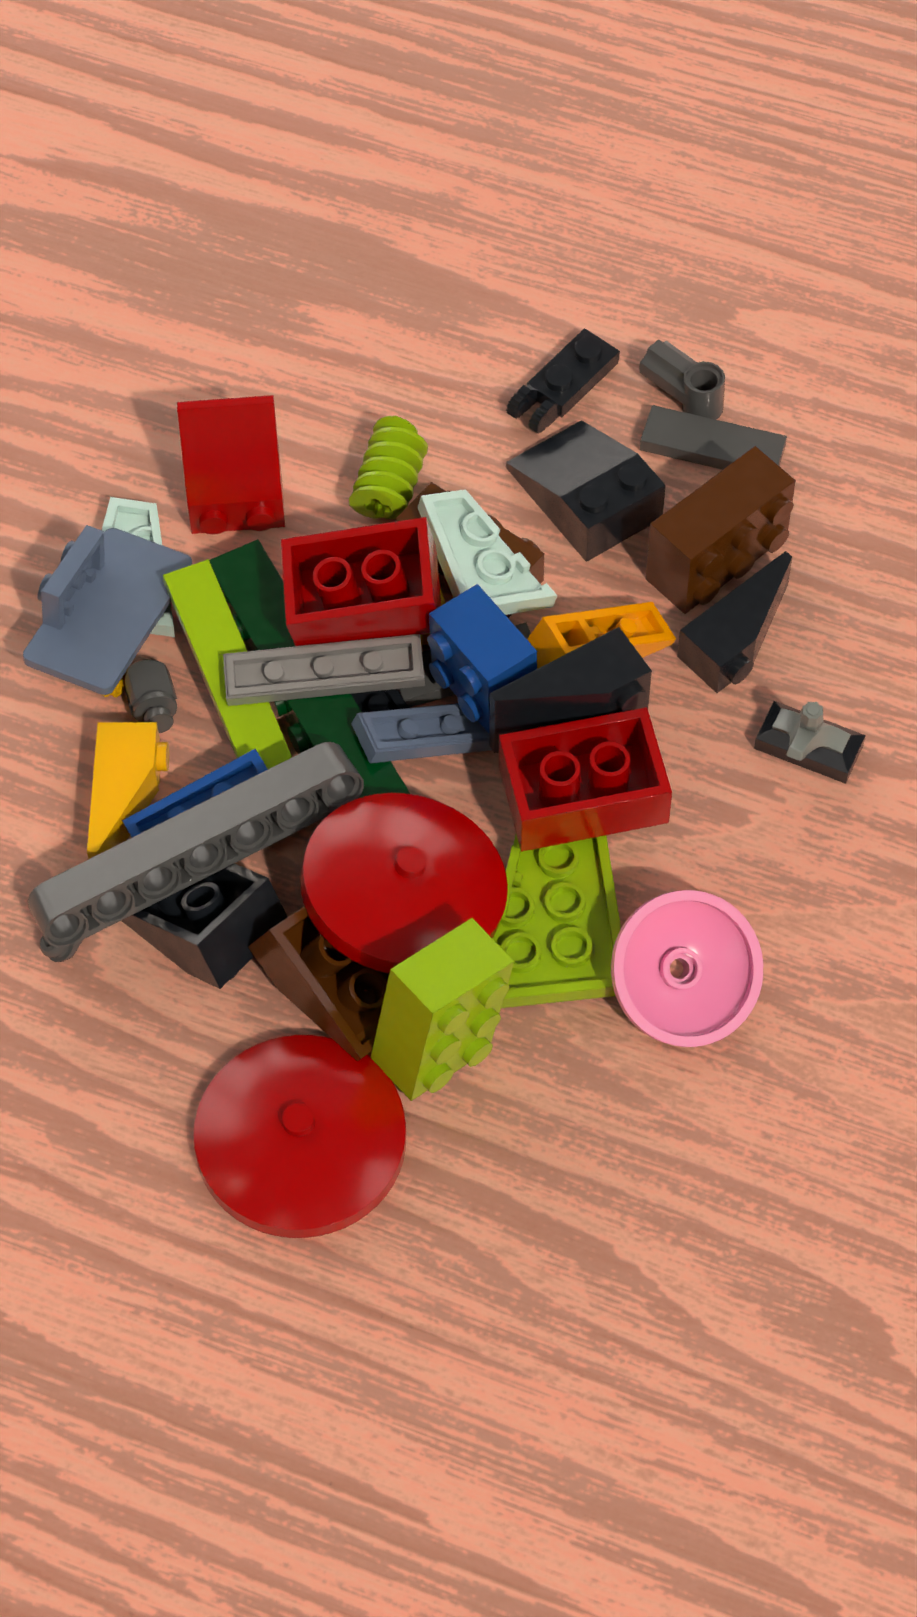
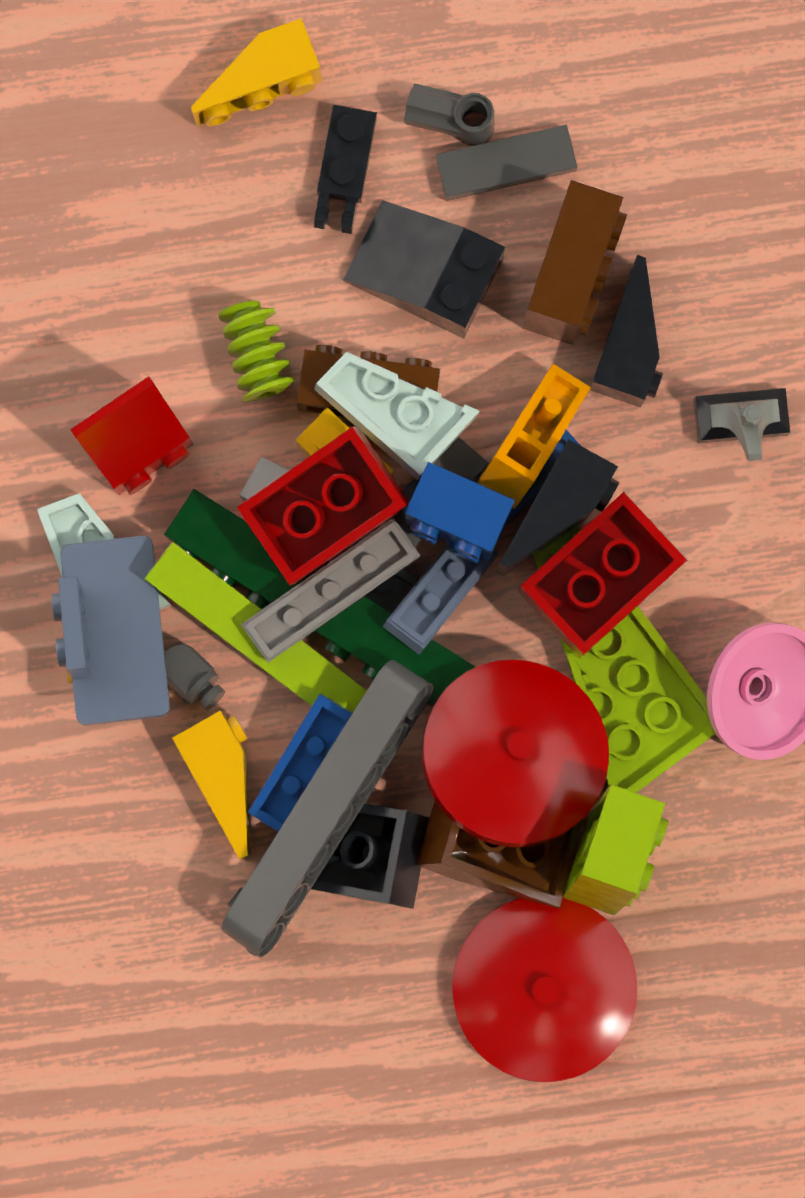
camera: 30 degrees left, 25 degrees up
(537, 275) = (268, 68): none -> yellow slope

